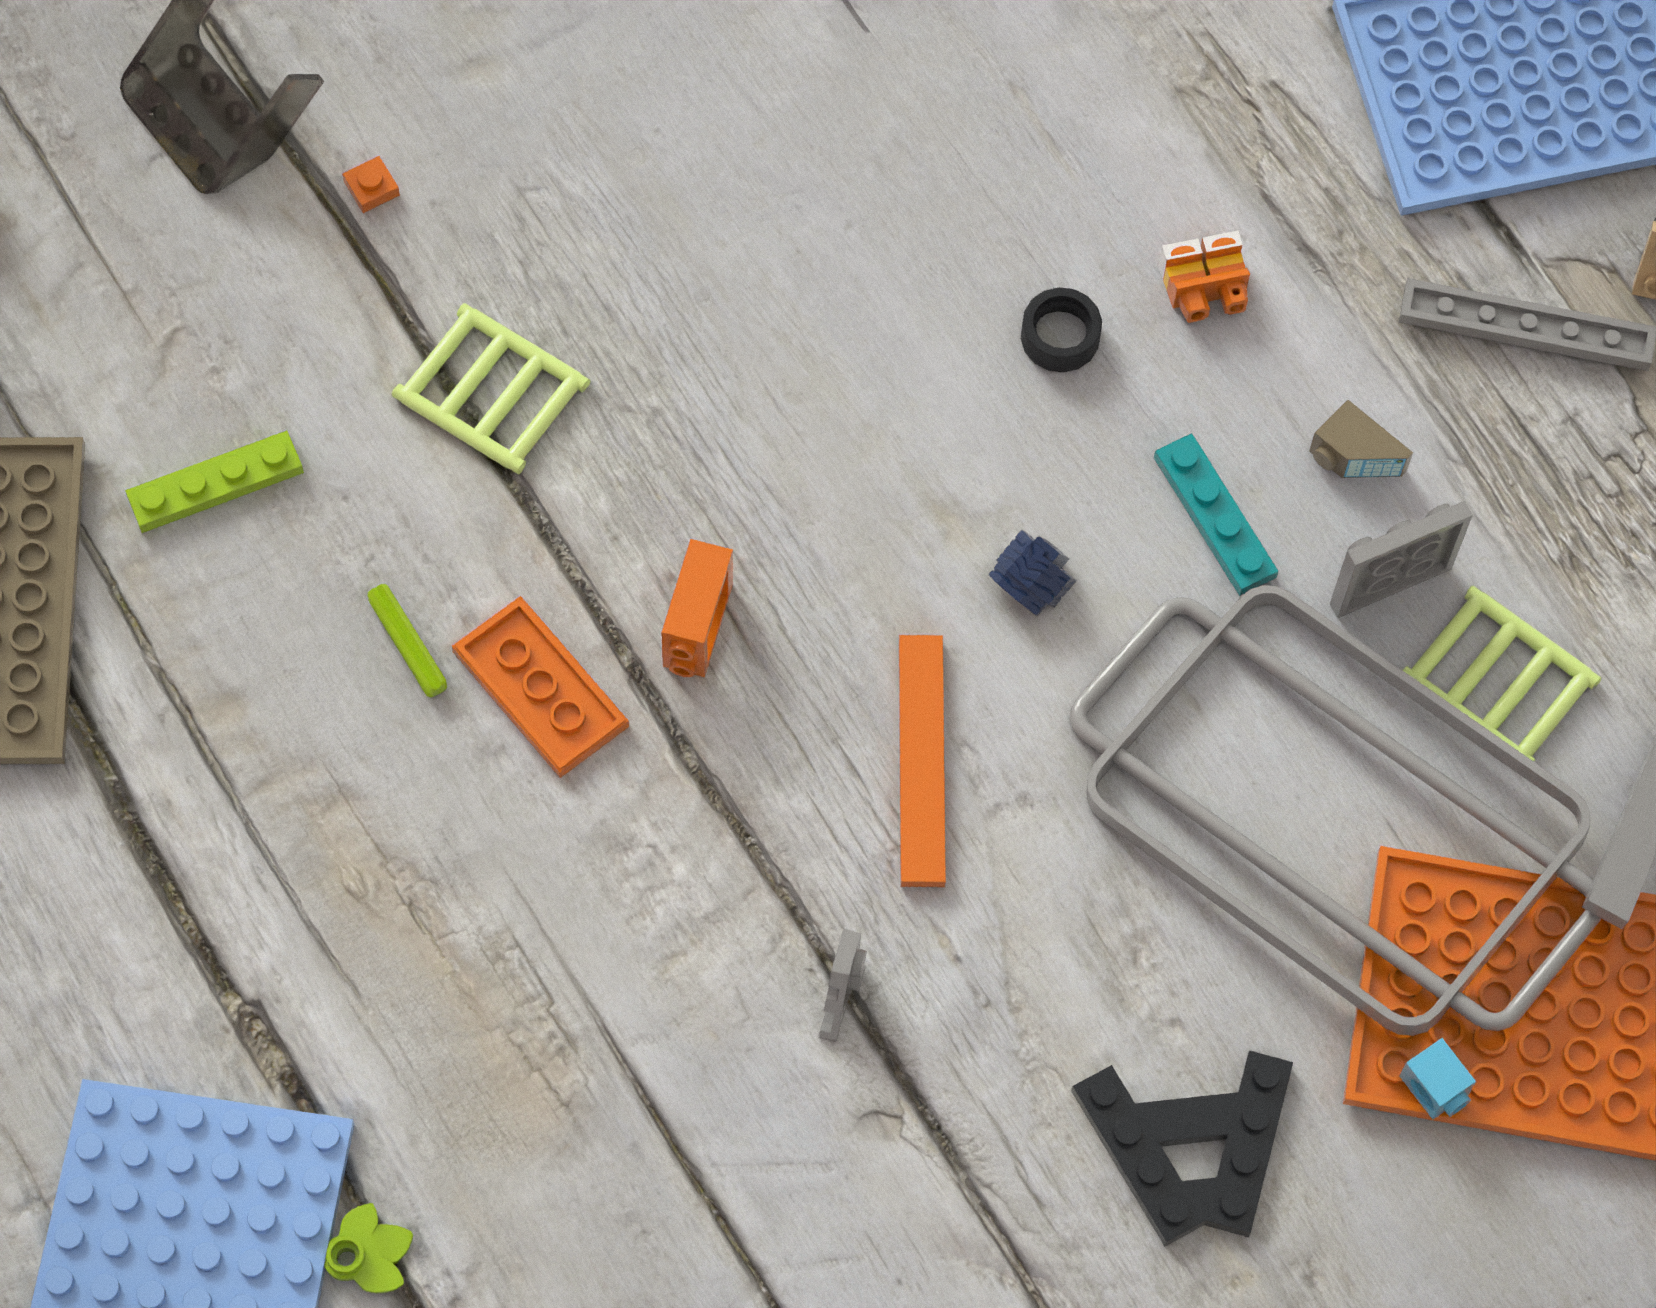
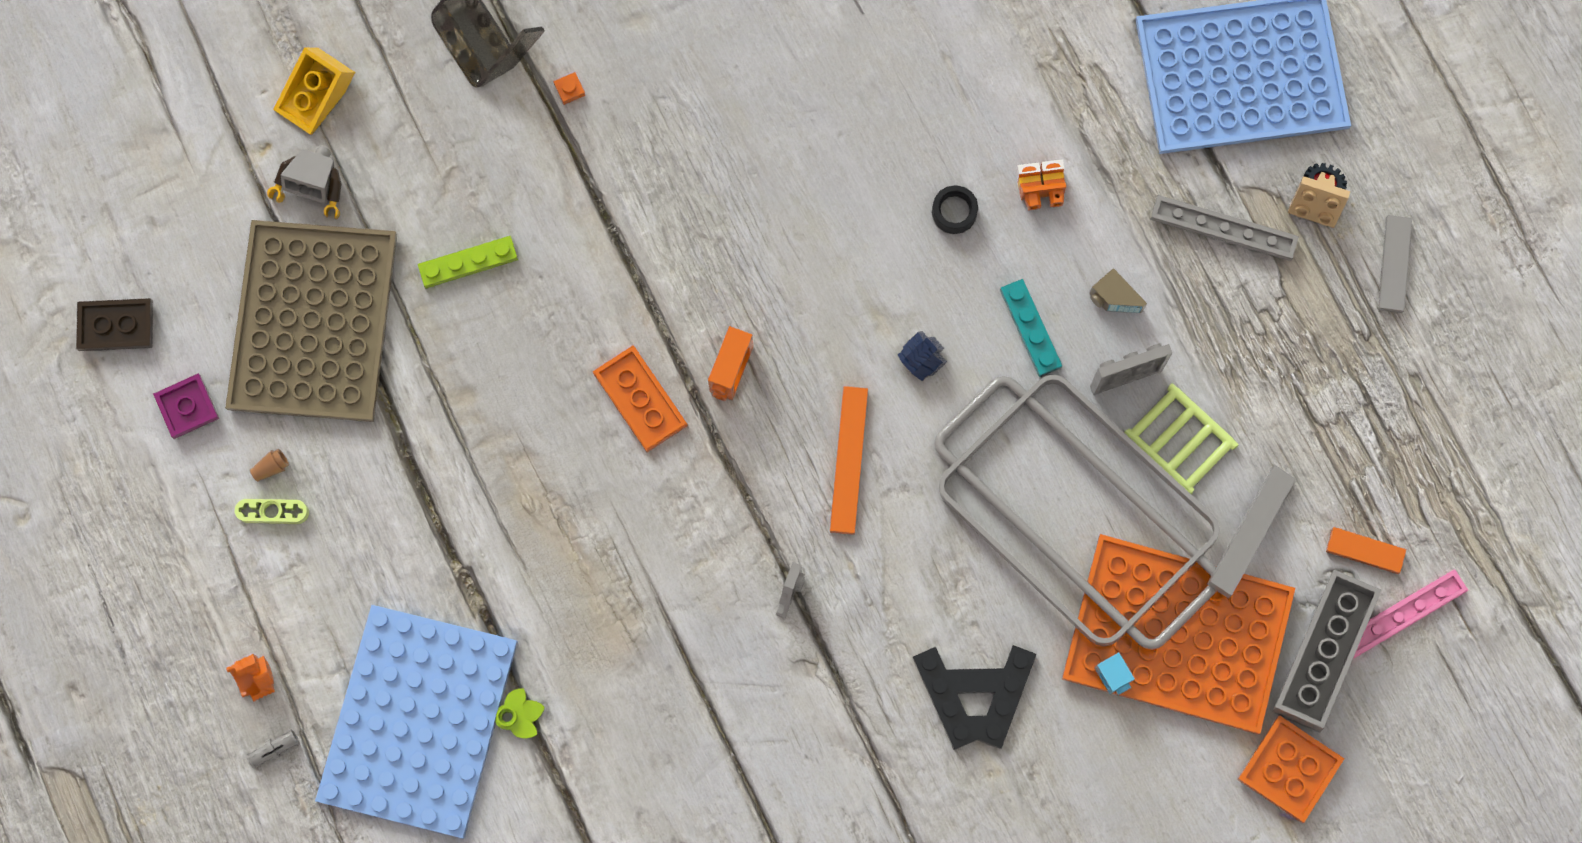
camera: 10 degrees right, 10 degrees up
(407, 640) = (568, 365): lime axle -> none
(502, 340) = (618, 246): yellowish green bar -> none

